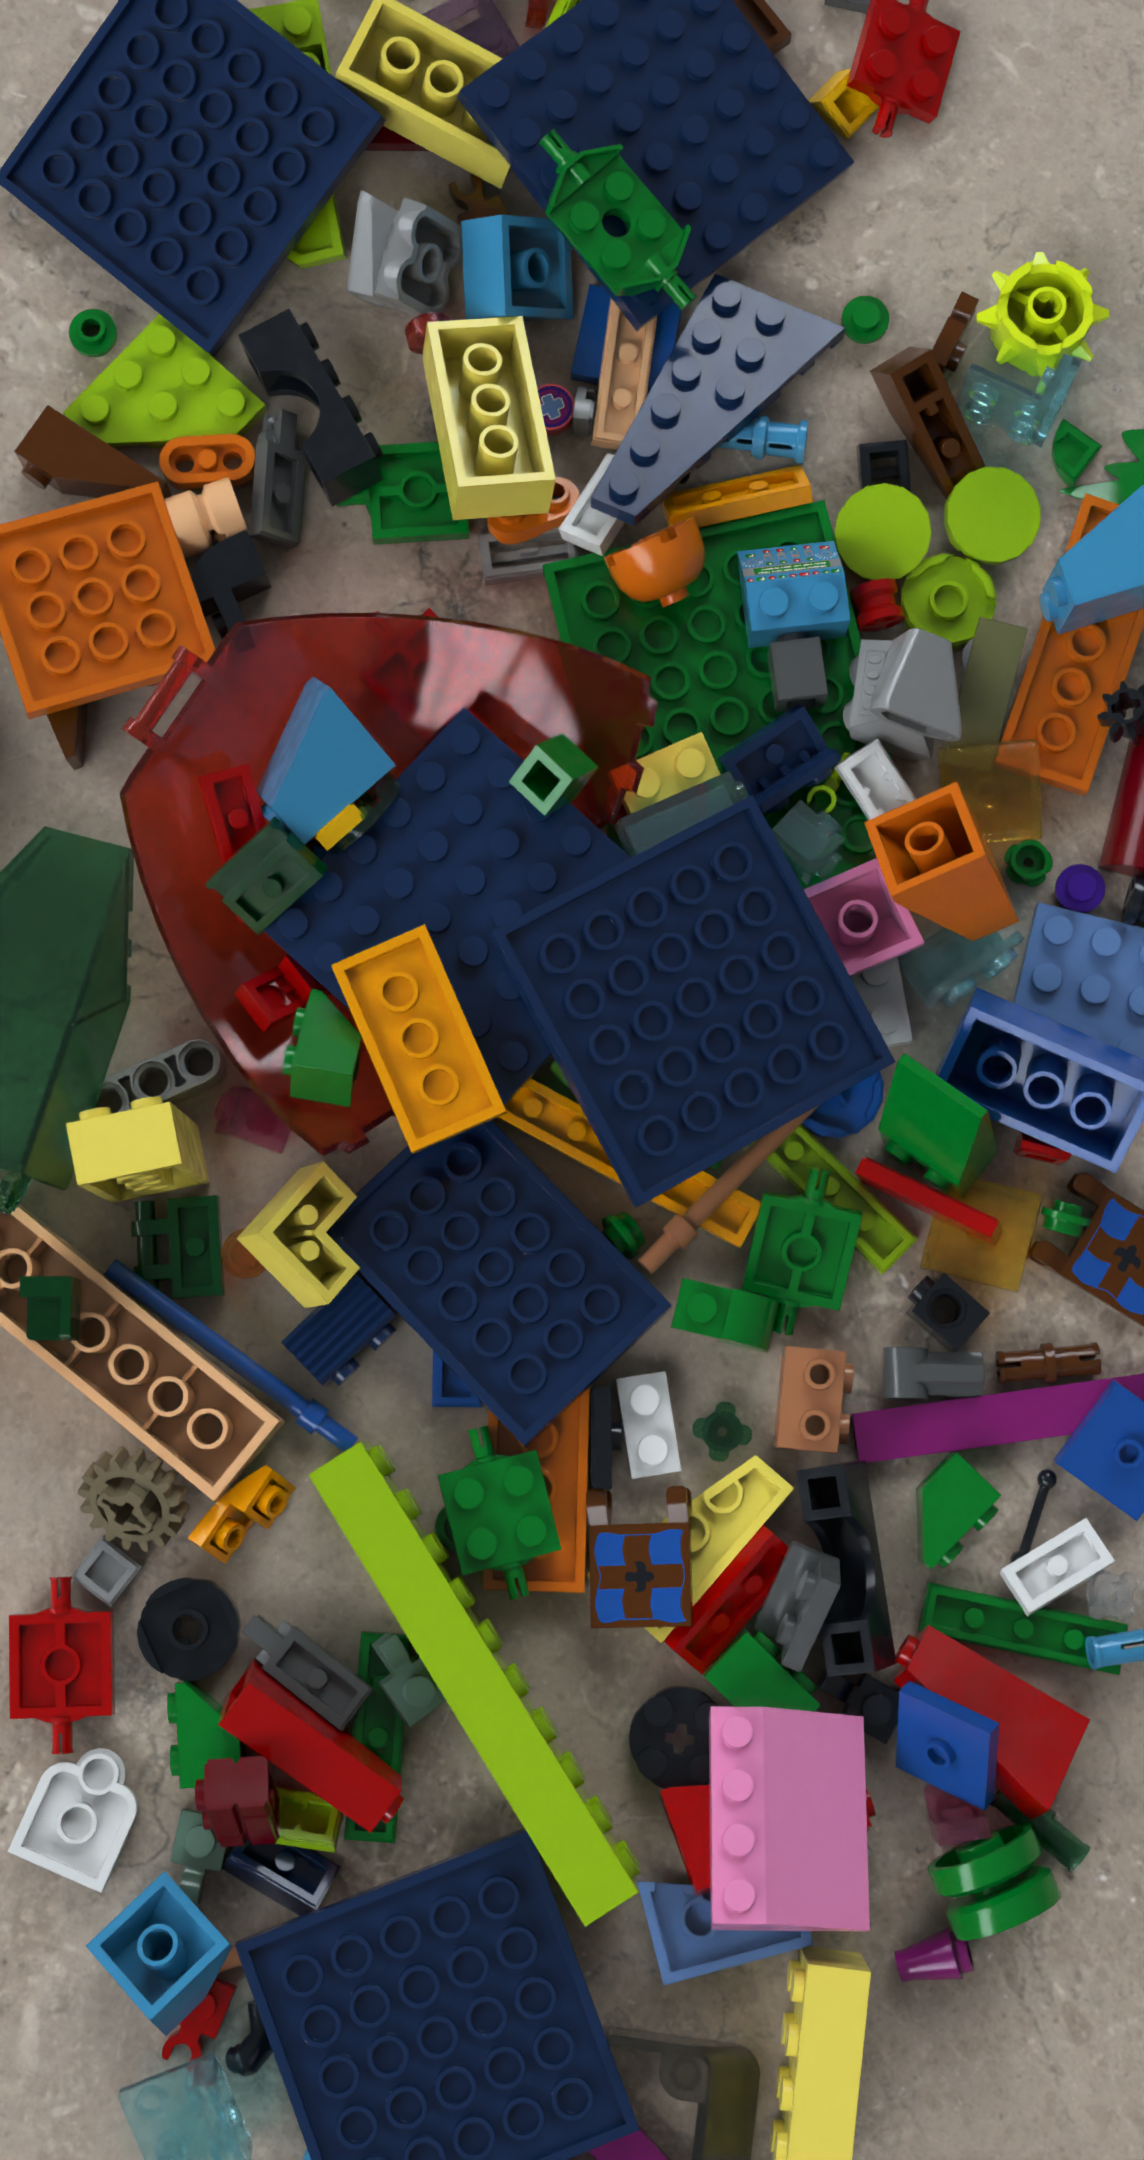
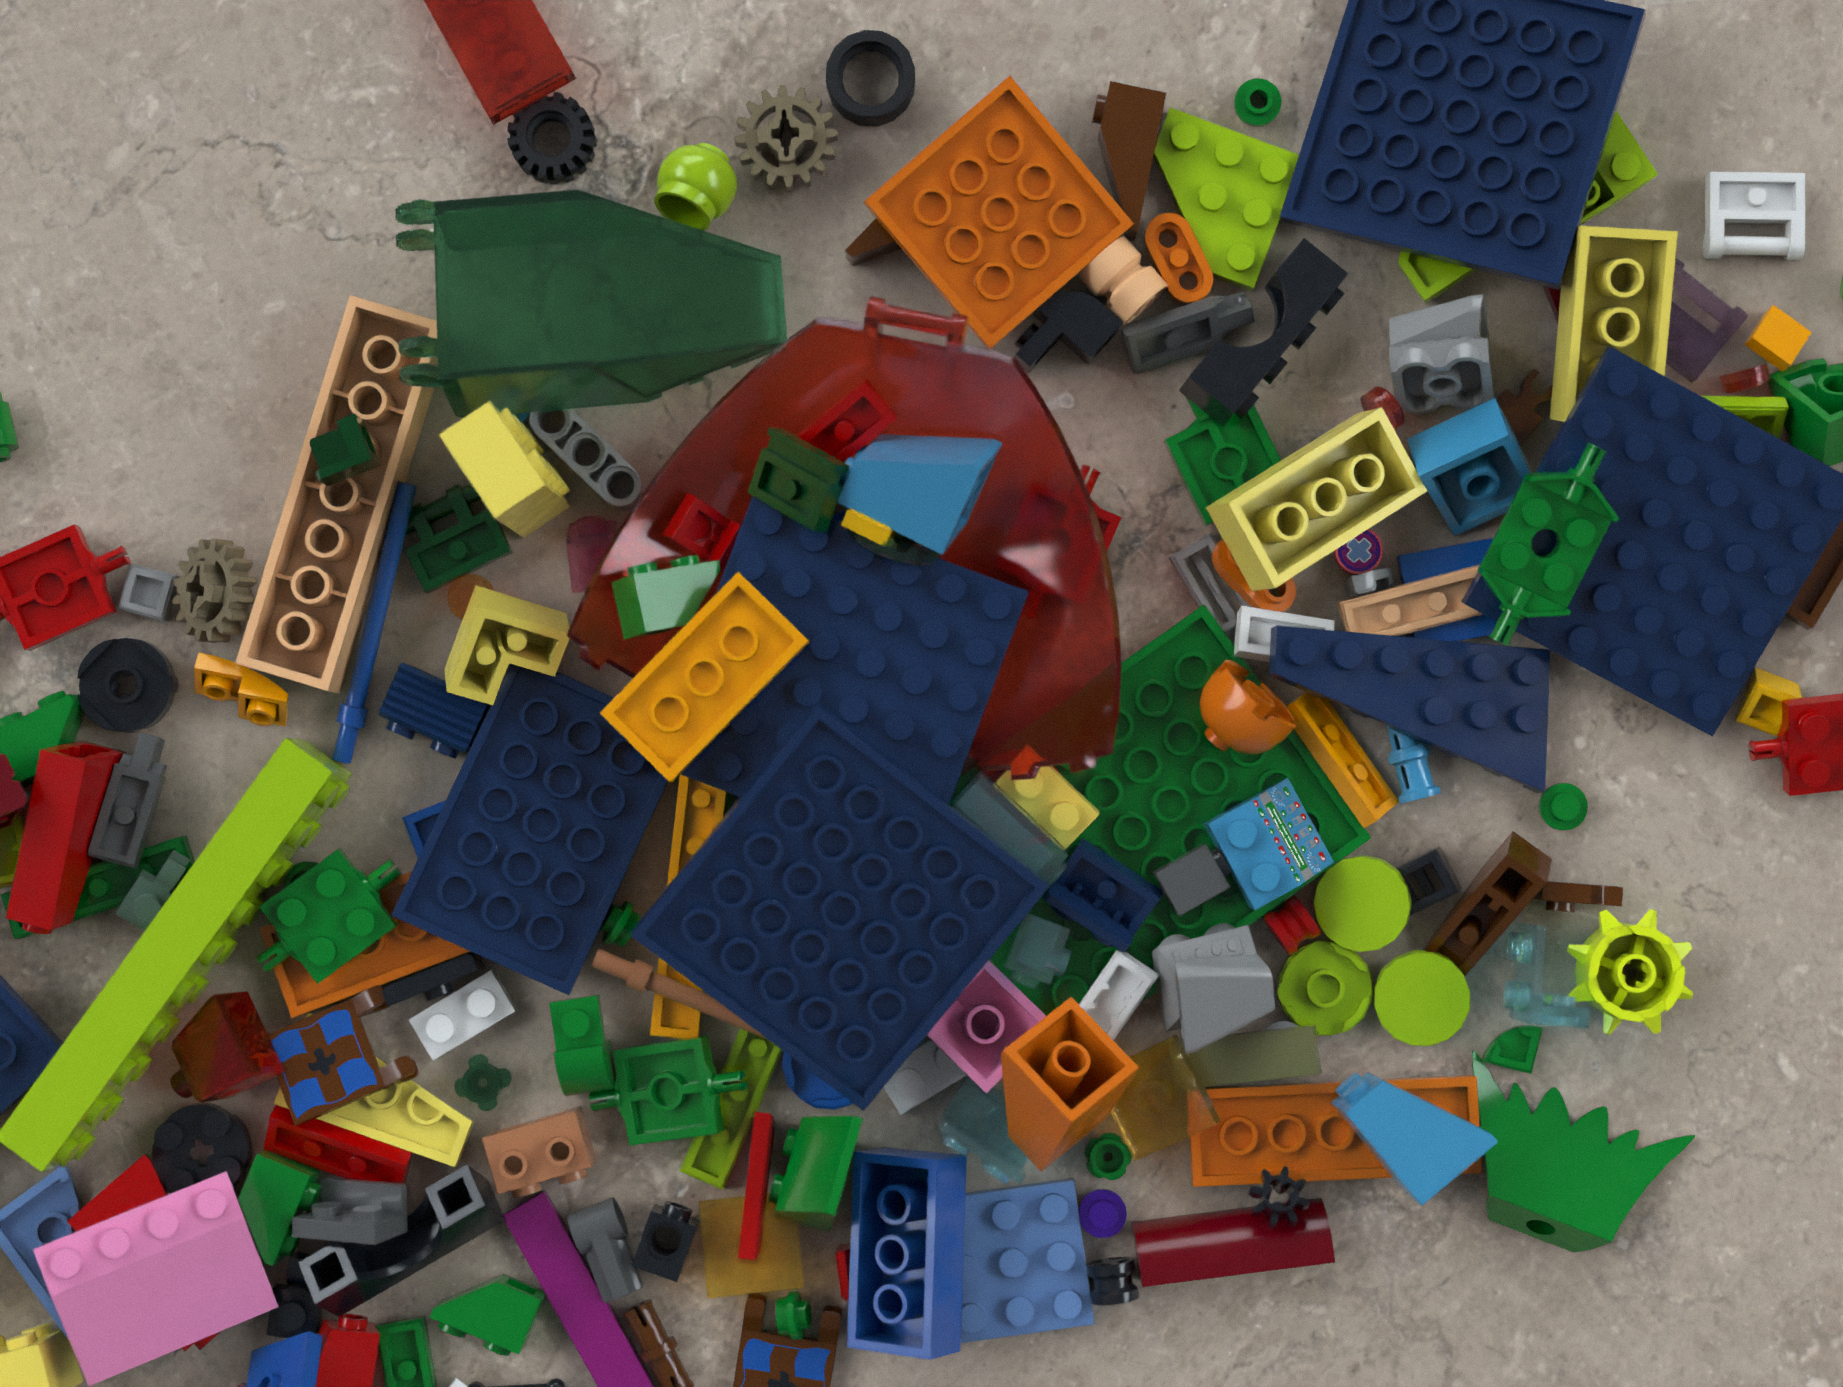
camera: 70 degrees right, 5 degrees up
(553, 774) = (993, 699): green brick -> none
(590, 1671) = (223, 1050): none -> clear red torso
(829, 787) = (1099, 949): lime hand -> none

